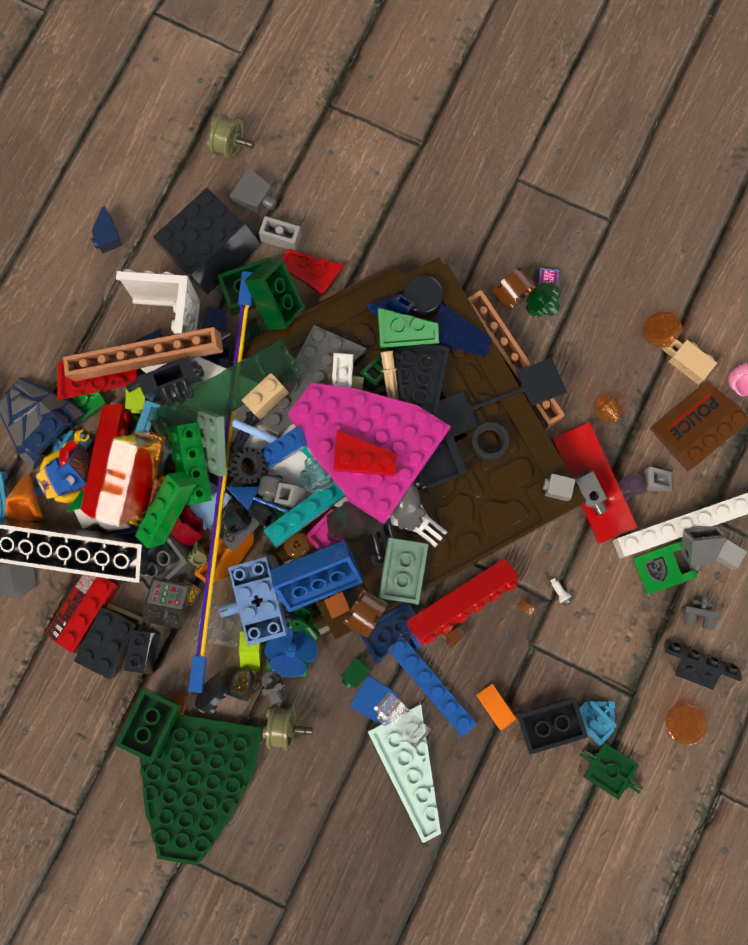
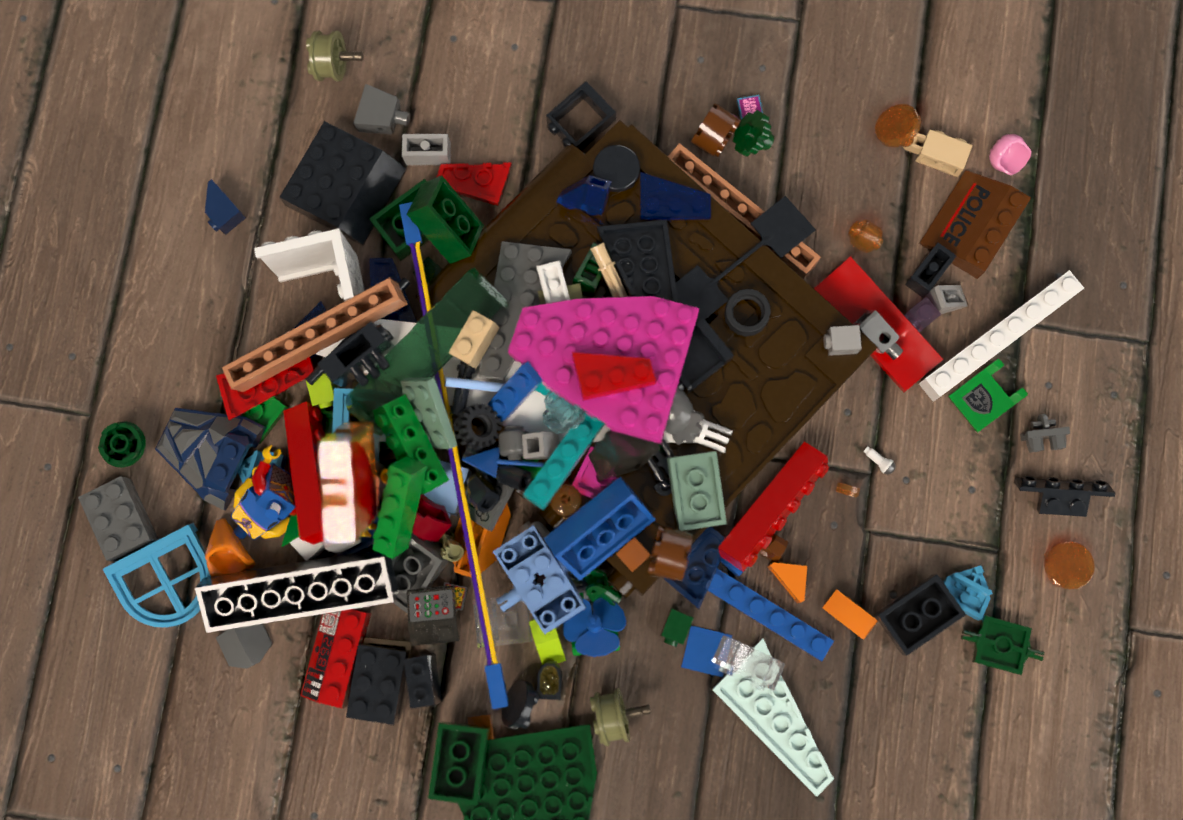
camera: 15 degrees left, 0 degrees up
(273, 688) = (587, 674): dark grey hips -> none
(405, 330) = (610, 214): wing -> none
(429, 242) = (595, 101): none -> black window
(459, 663) = (792, 578): none -> orange slope
(650, 452) = (930, 270): none -> black brick
(702, 545) = (1022, 357): dark grey torso -> none
(731, 555) = (1054, 357): light grey brick -> none

